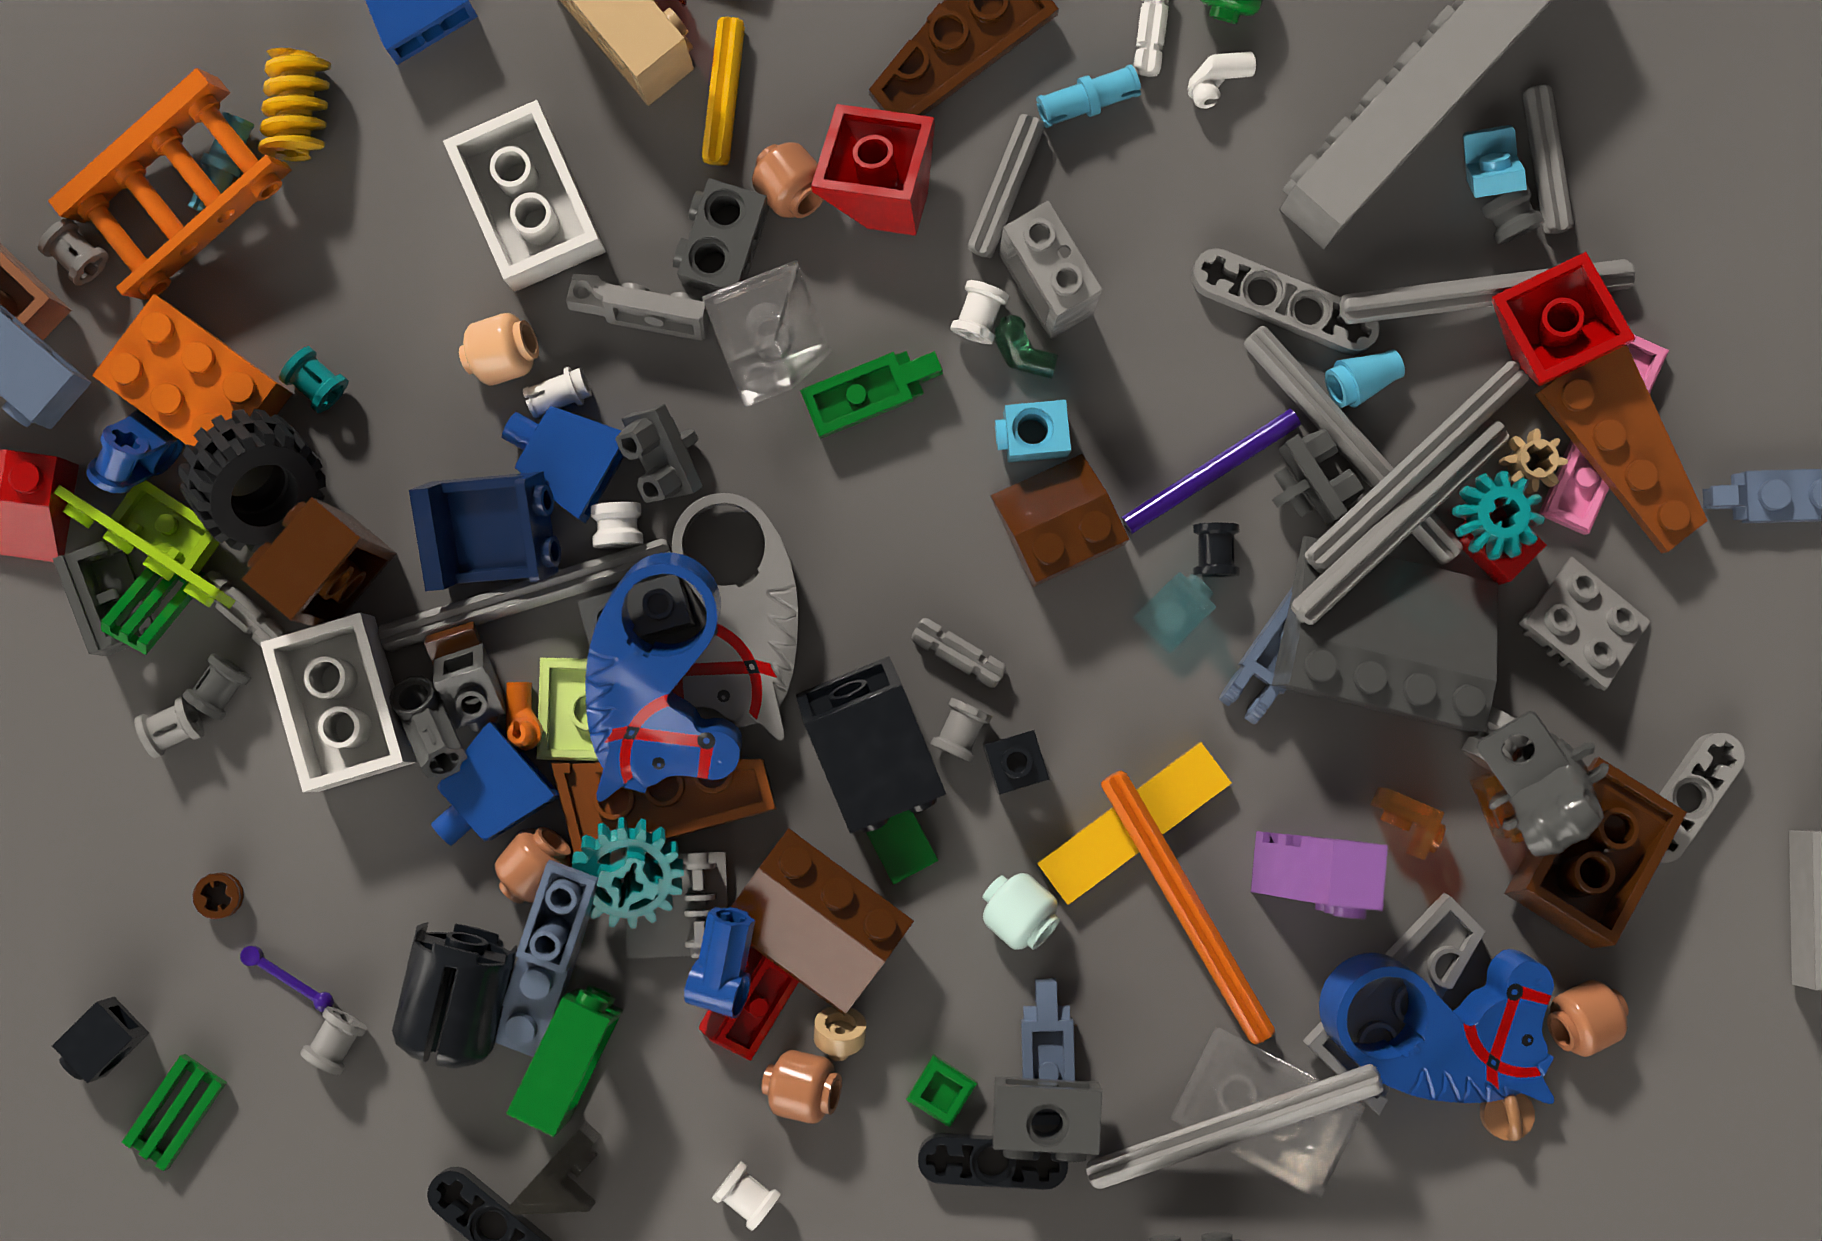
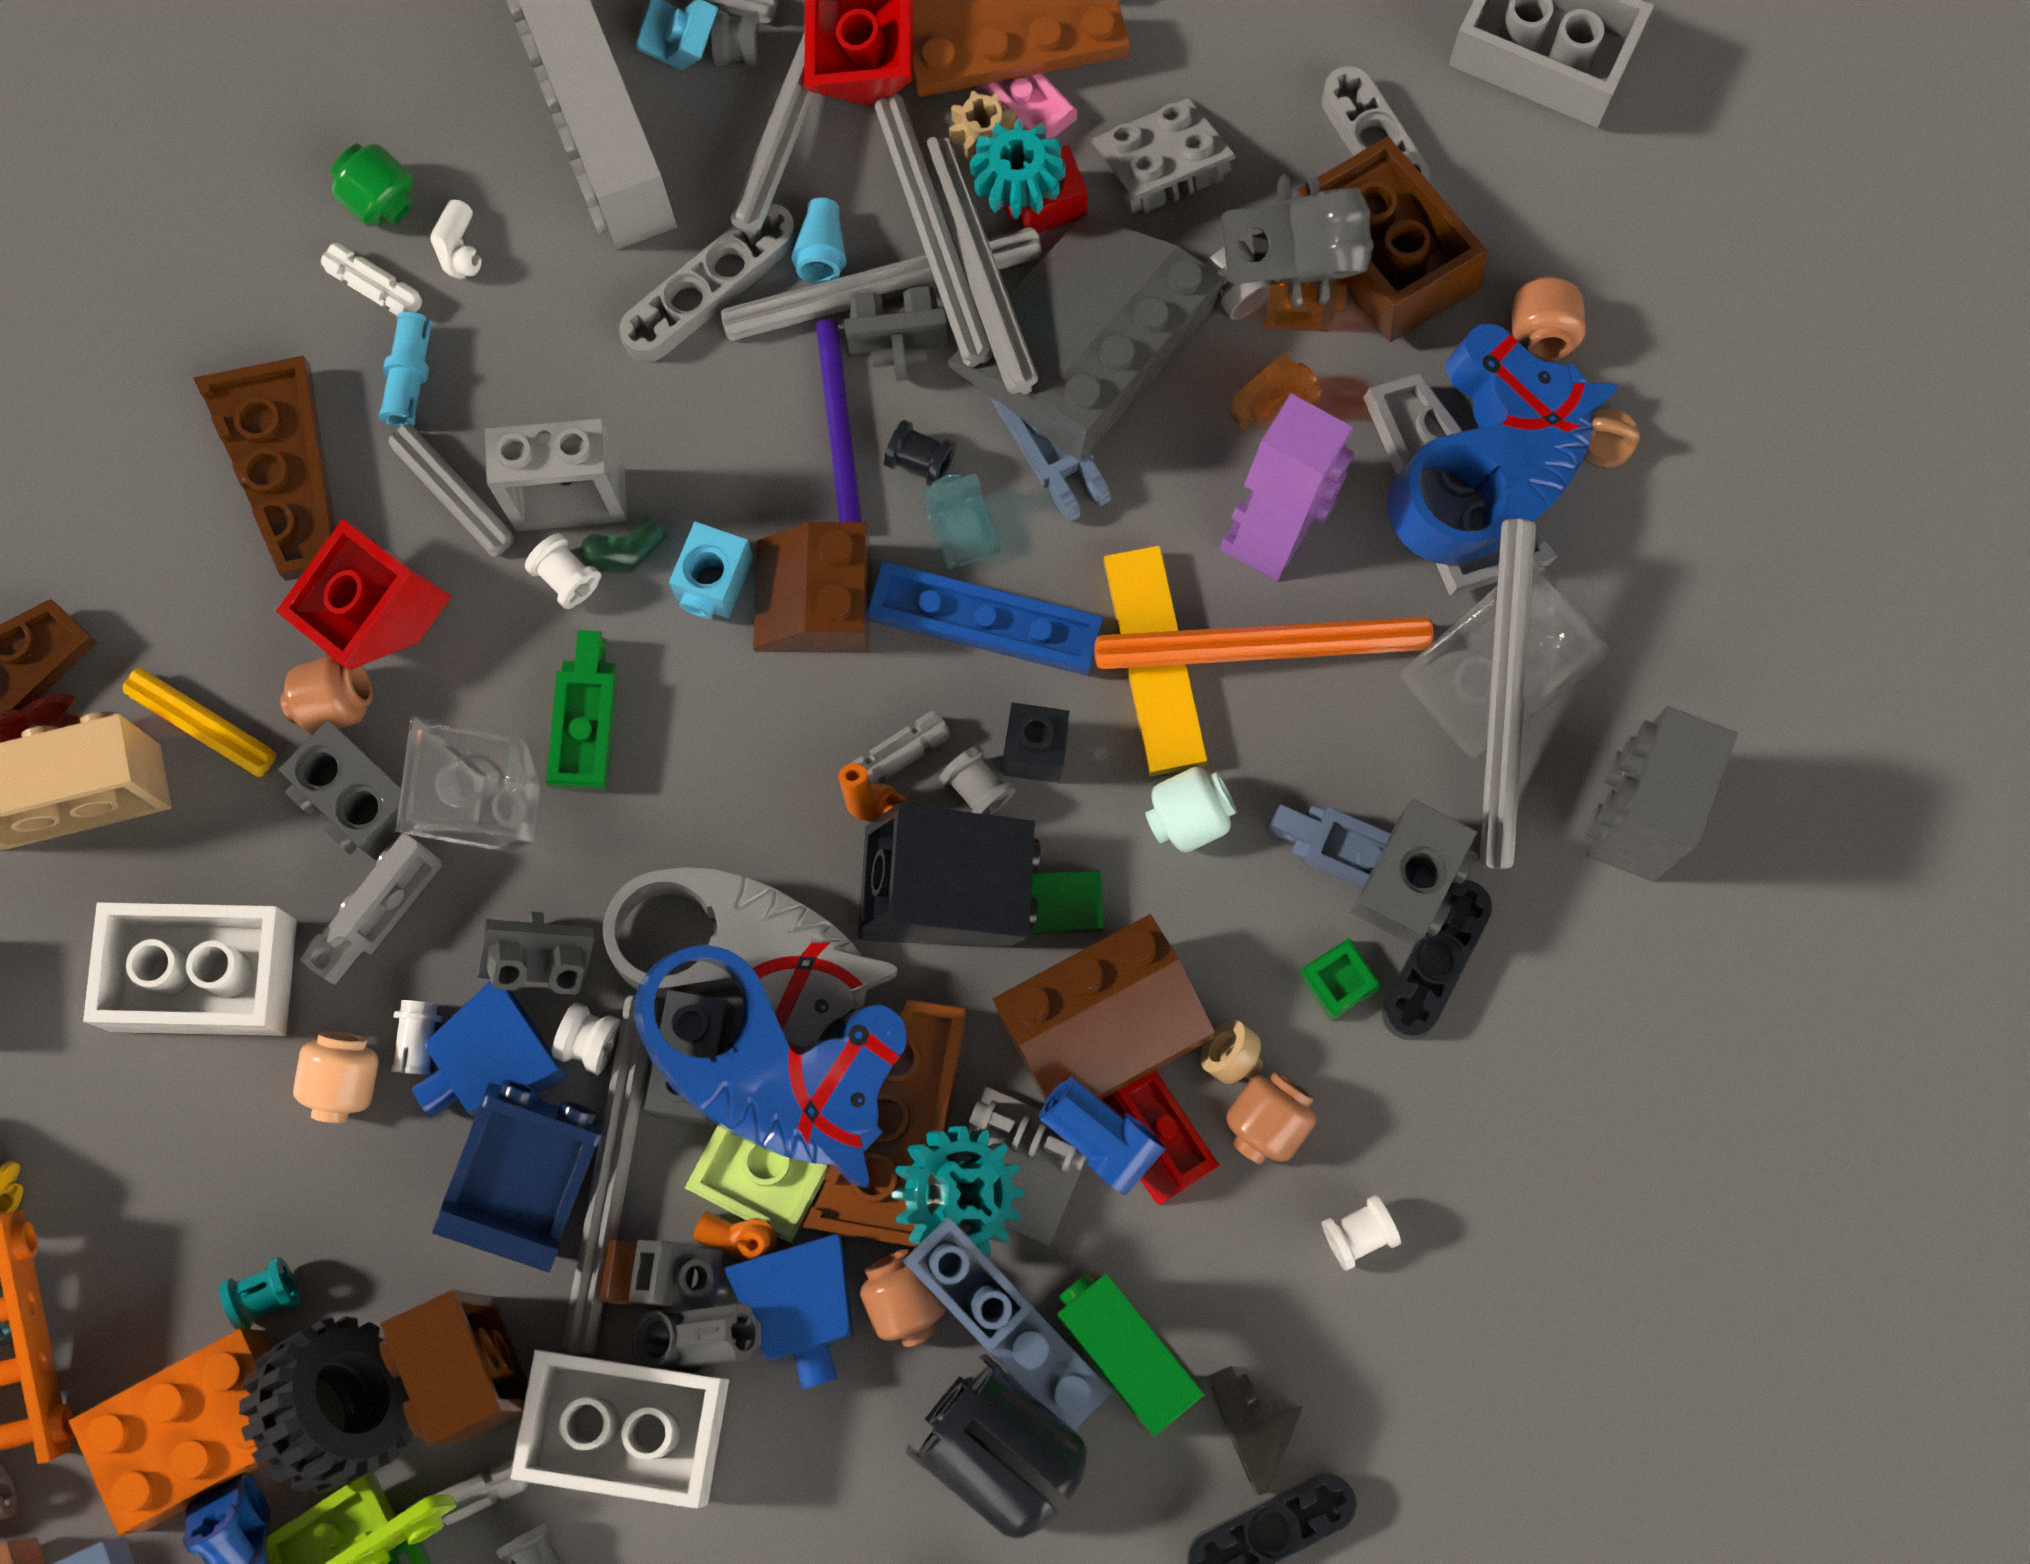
camera: 65 degrees left, 10 degrees down
(908, 652) = (863, 798): none -> orange arm
(1102, 670) = (984, 618): none -> blue plate

